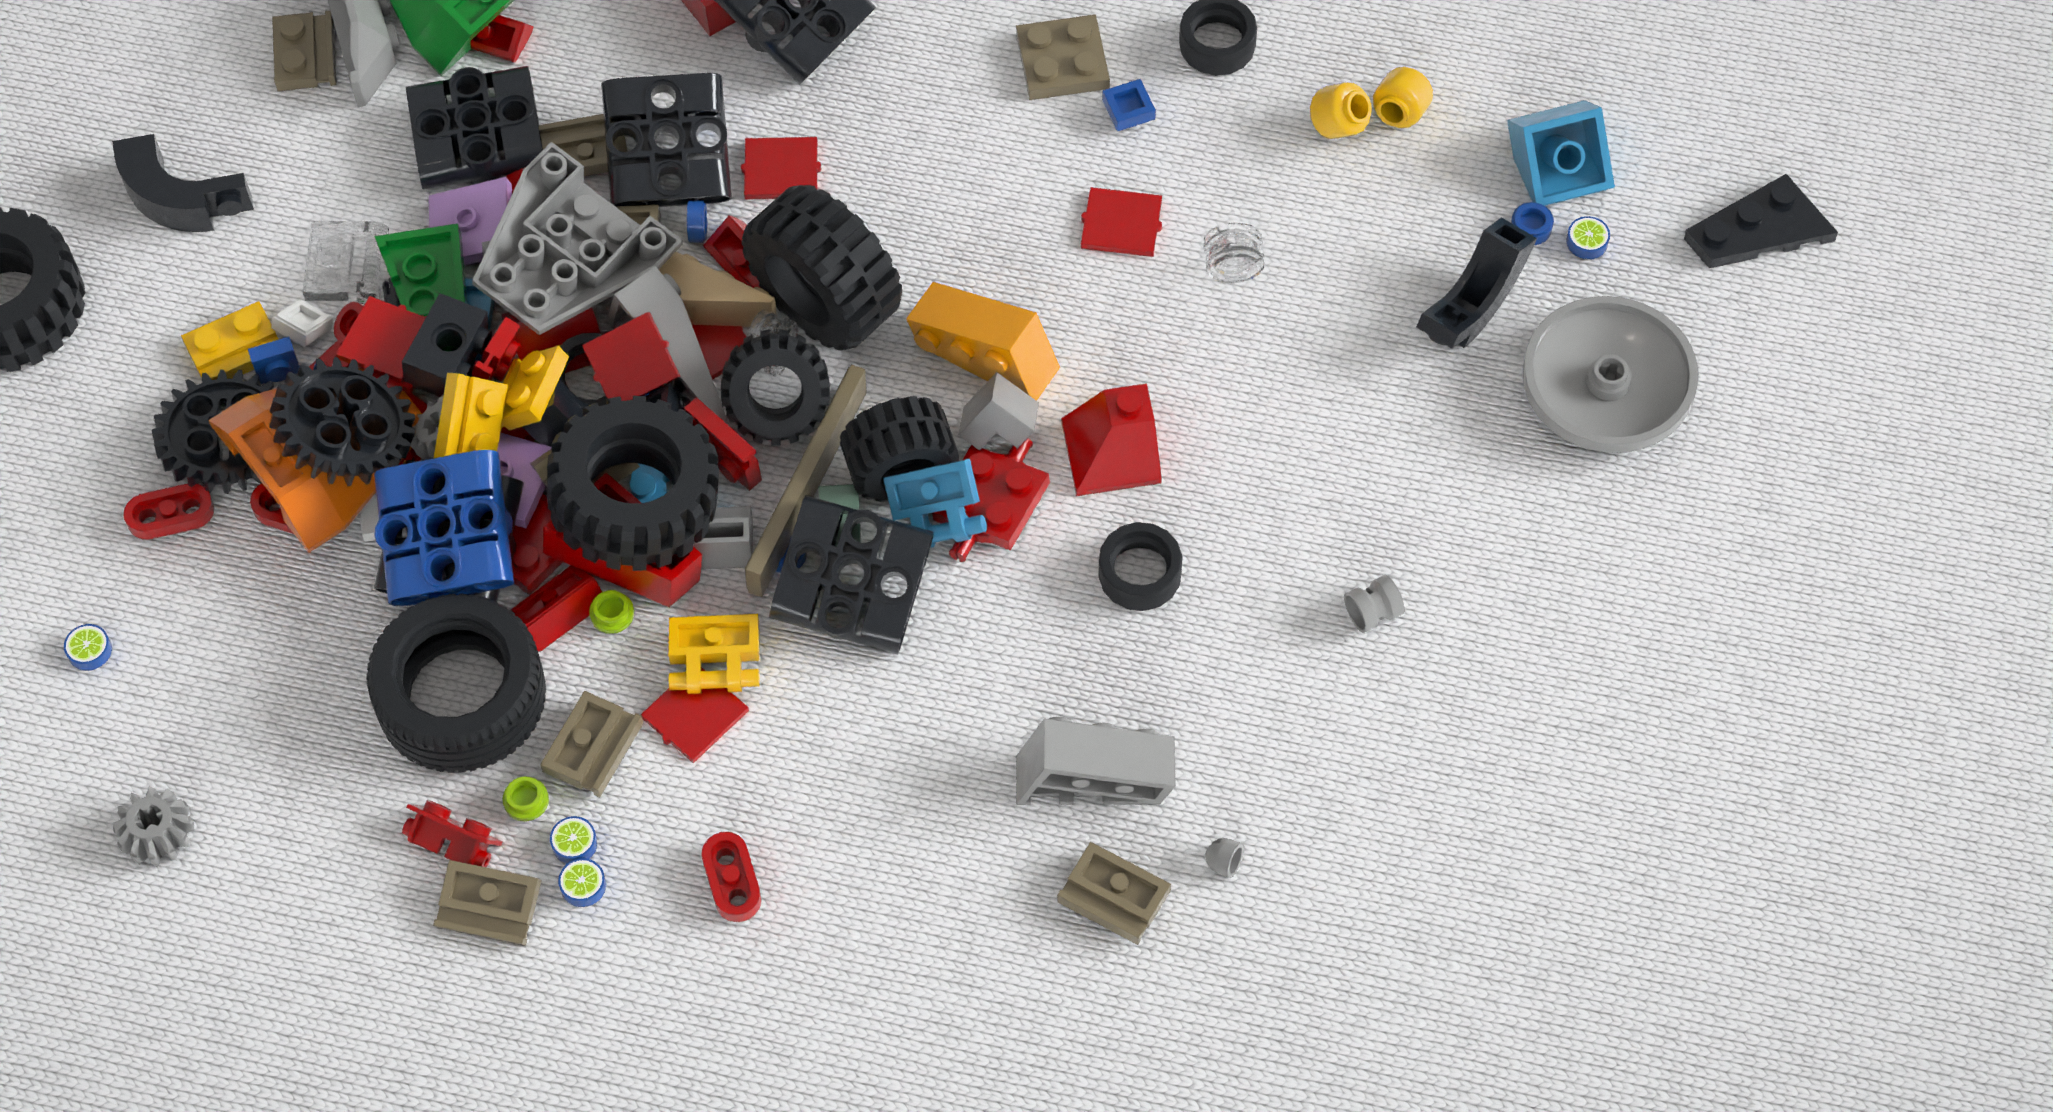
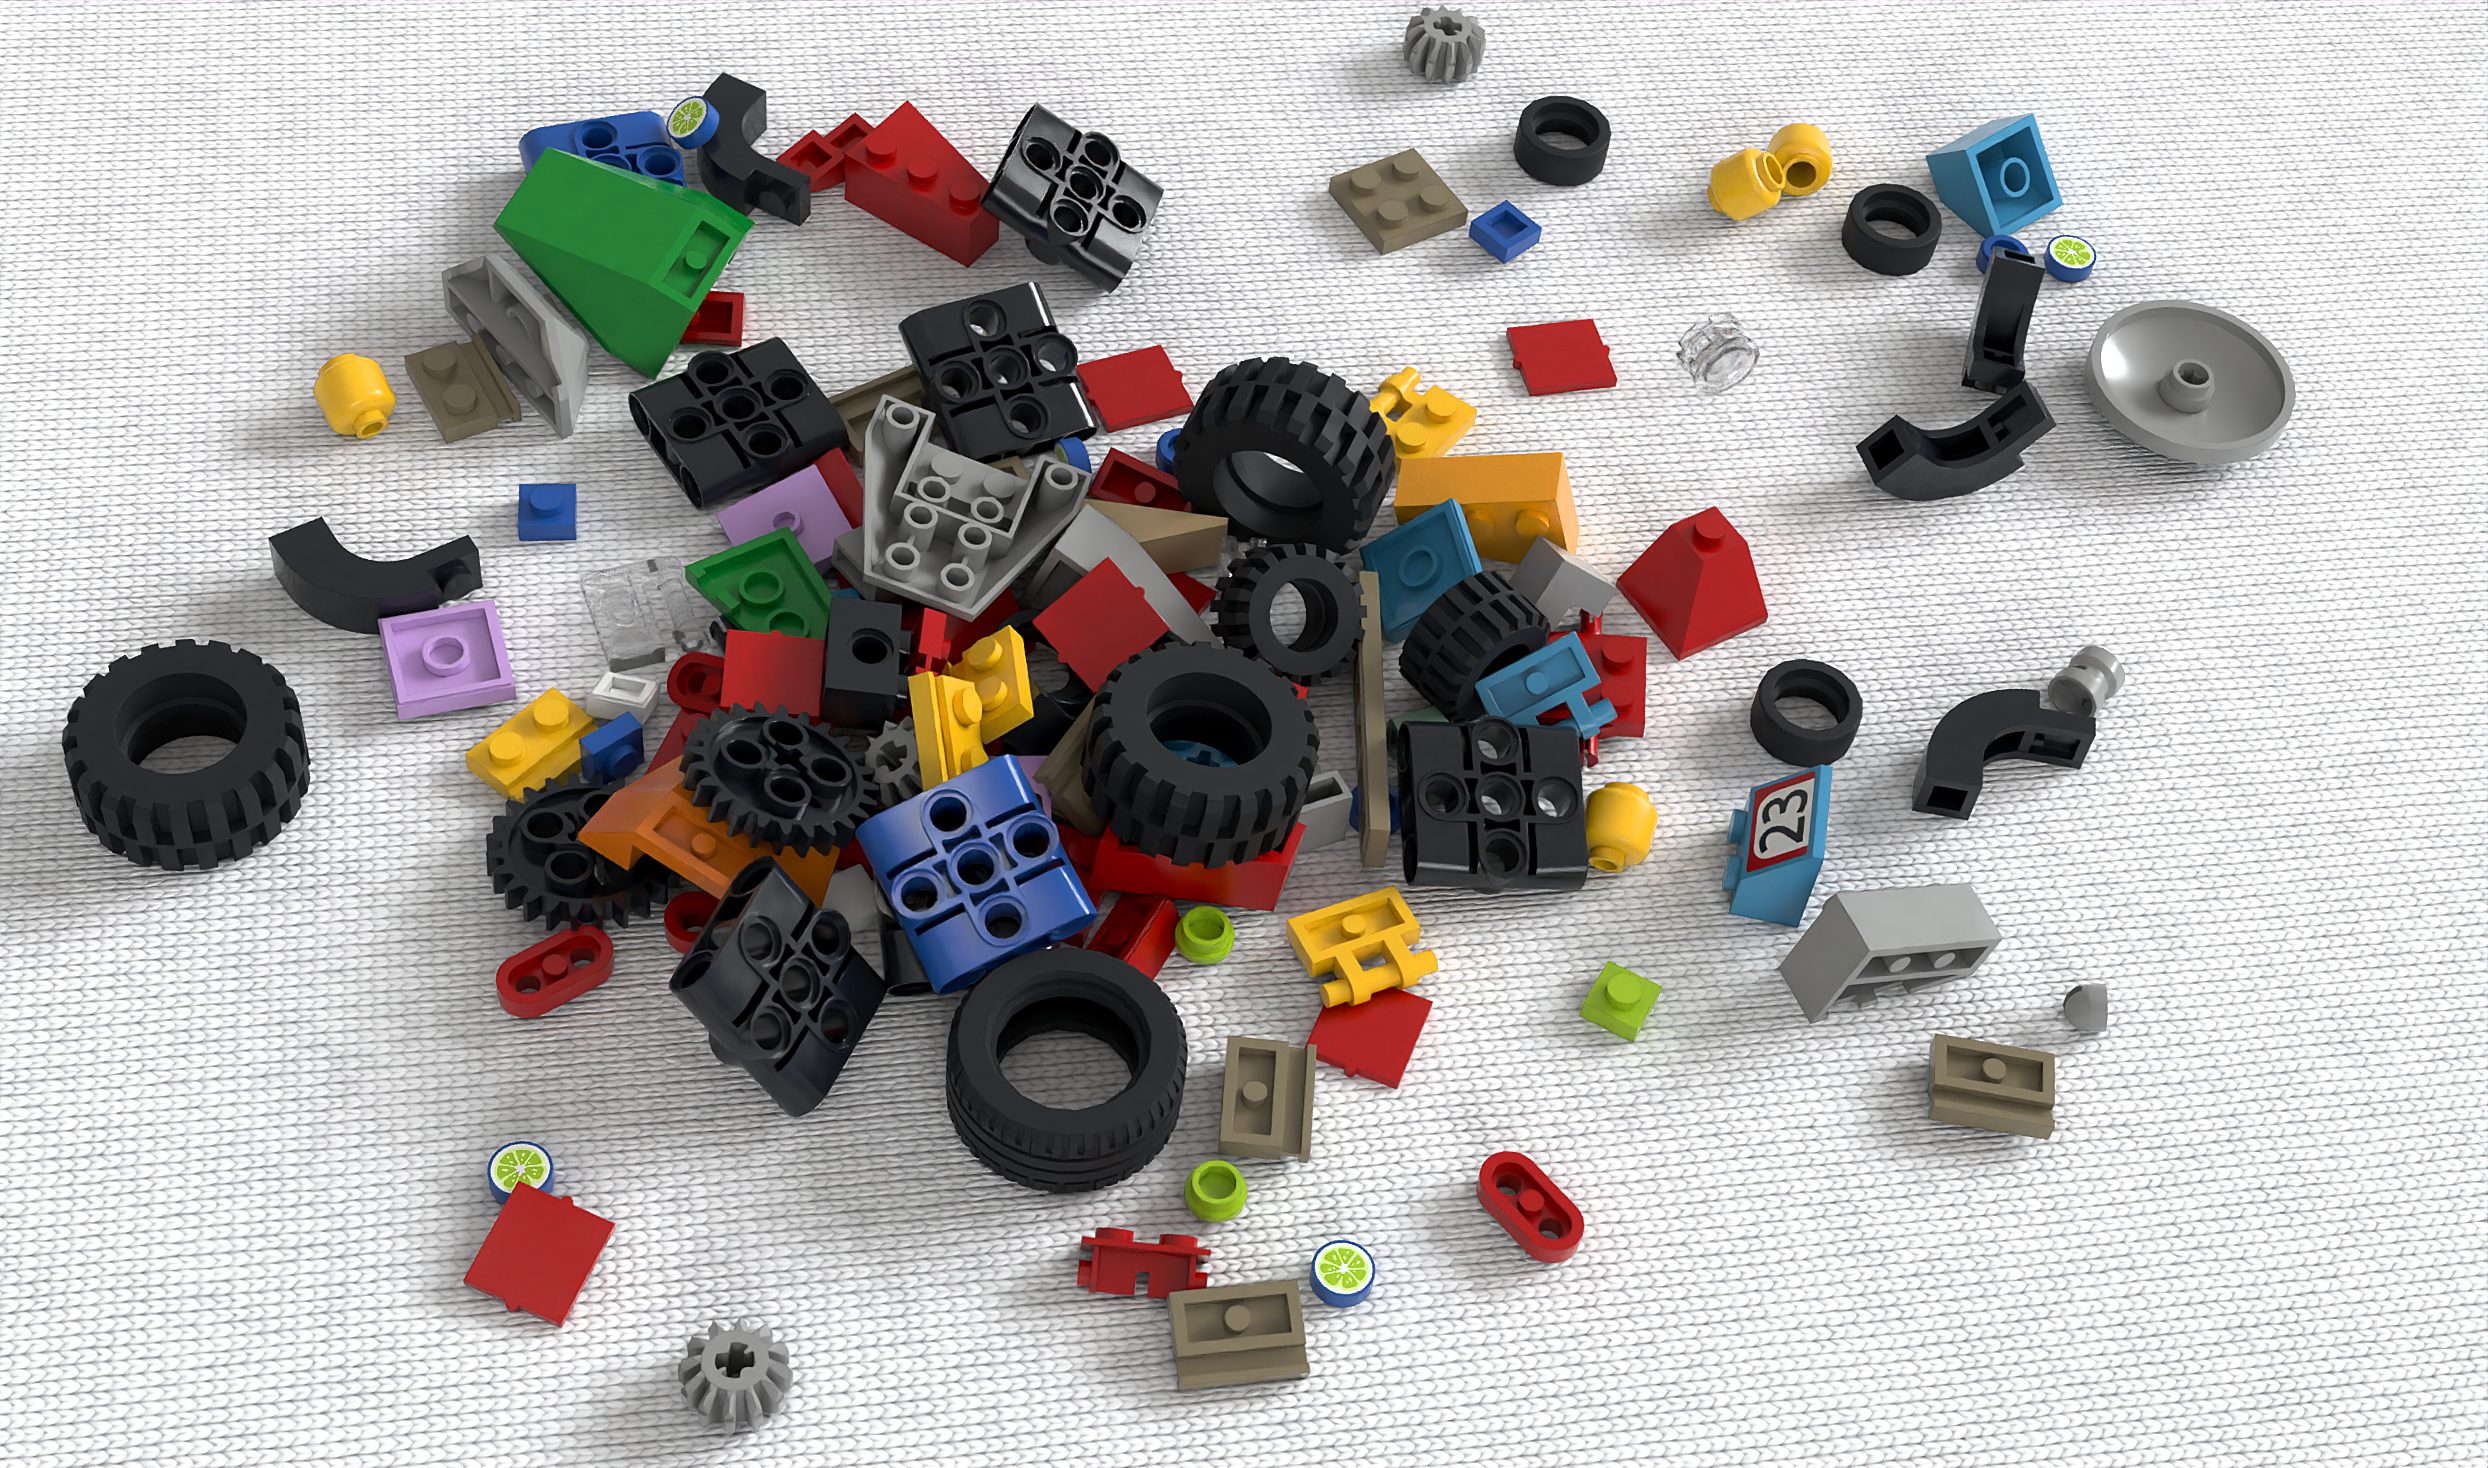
camera: 30 degrees left, 10 degrees down
(74, 705) = (539, 1254): none -> red piece
(199, 261) = (446, 659): none -> lavender plate
(223, 41) = (354, 395): none -> yellow head
(294, 525) = (779, 986): none -> black connector
(318, 163) = (547, 512): none -> blue plate
(573, 839) = (1302, 1224): tile -> none
(882, 747) = (1620, 1001): none -> lime plate
(906, 367) = (1420, 564): none -> dark azure plate
(944, 615) = (1619, 826): none -> yellow head
(979, 258) = (1428, 421): none -> yellow plate
(1051, 667) = (1778, 846): none -> dark azure slope
(1262, 621) = (1989, 730): none -> black arch
(1373, 390) = (1958, 459): none -> black arch
(1444, 203) = (1884, 253): none -> black tyre
(1759, 223) = (2232, 205): black wing -> none

